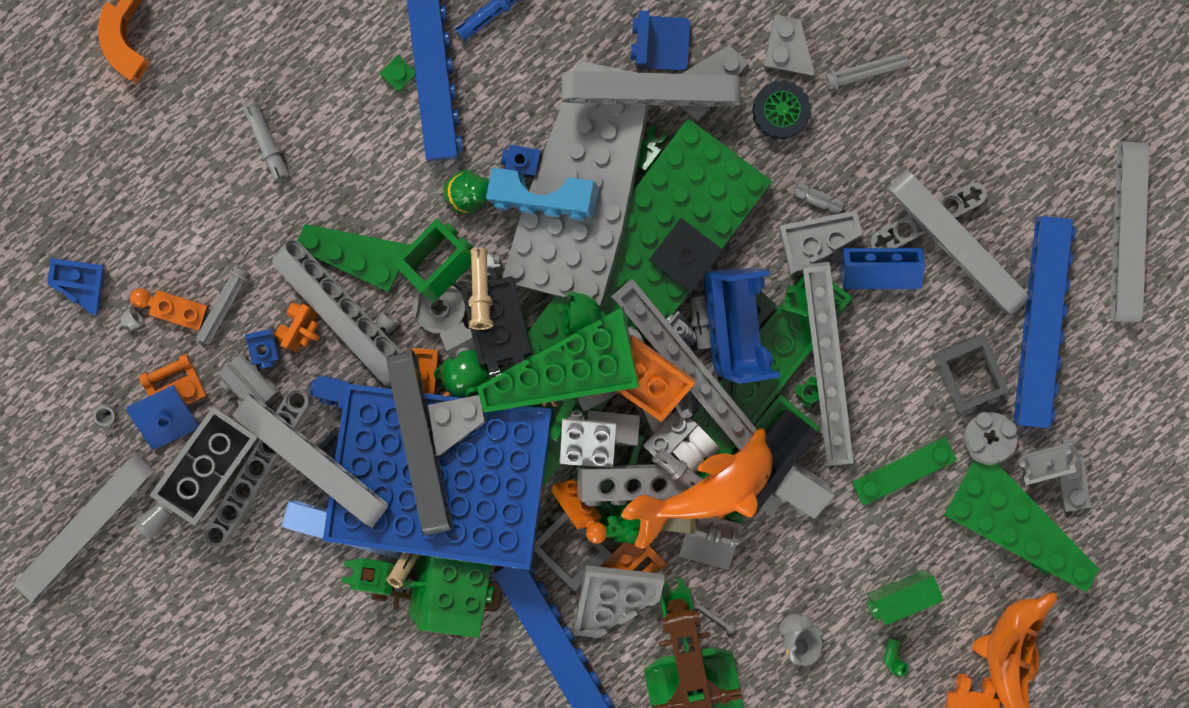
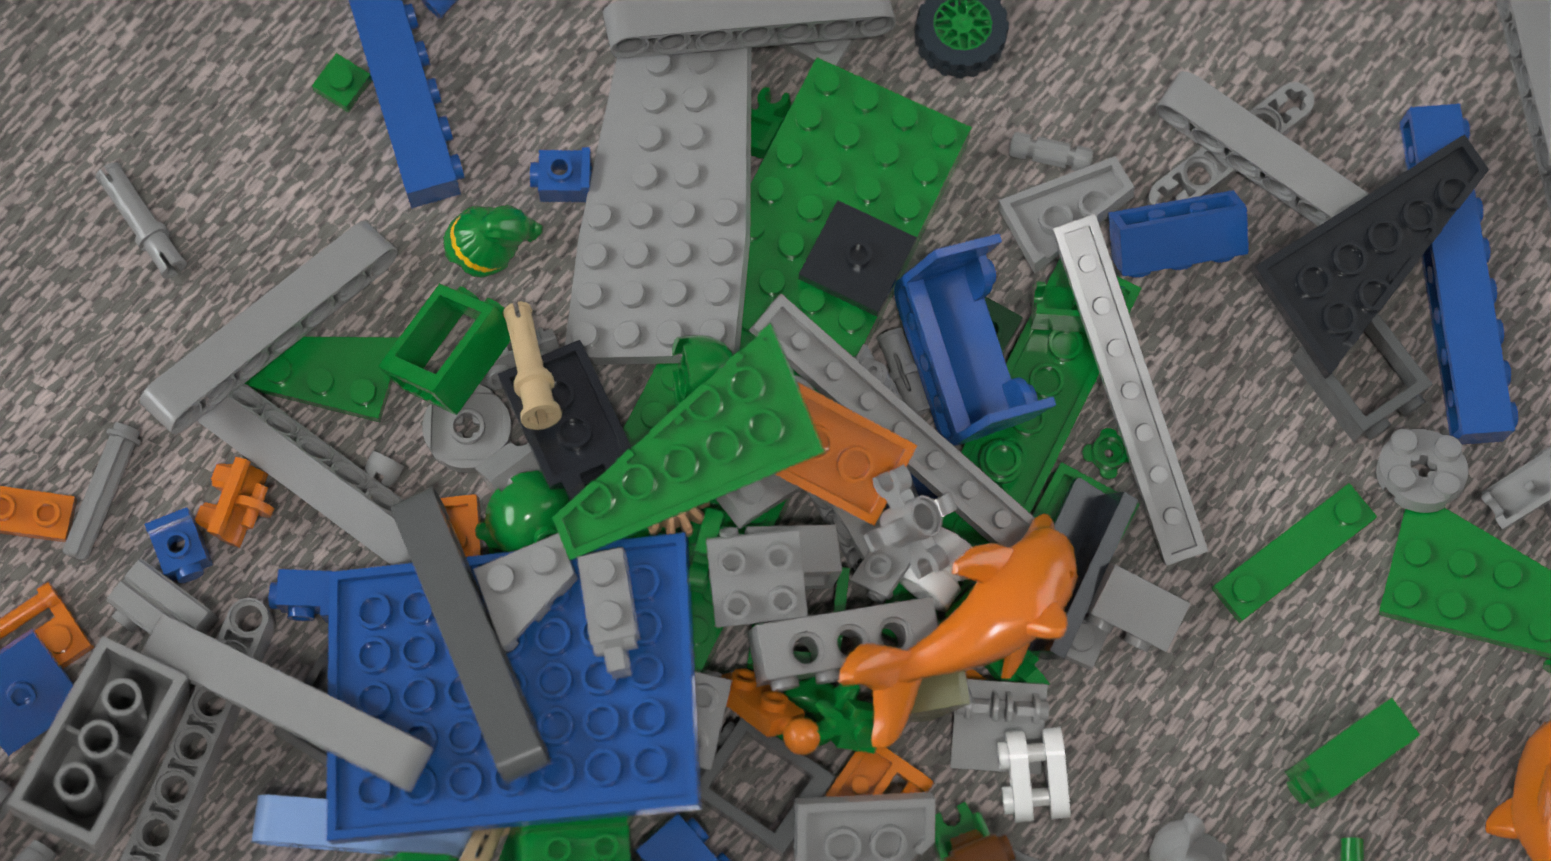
camera: 10 degrees left, 15 degrees down
(333, 230) = (268, 327): none -> light grey beam
(501, 446) = (610, 608): none -> light grey hinge
(549, 502) = (711, 703): none -> light grey hinge
(573, 198) = (657, 199): dark azure arch -> none
(677, 469) = (915, 597): light grey pin -> none
(682, 427) = (910, 522): none -> light grey pin
(715, 561) = (1015, 756): none -> white brick
(982, 310) = (1354, 262): none -> black wing

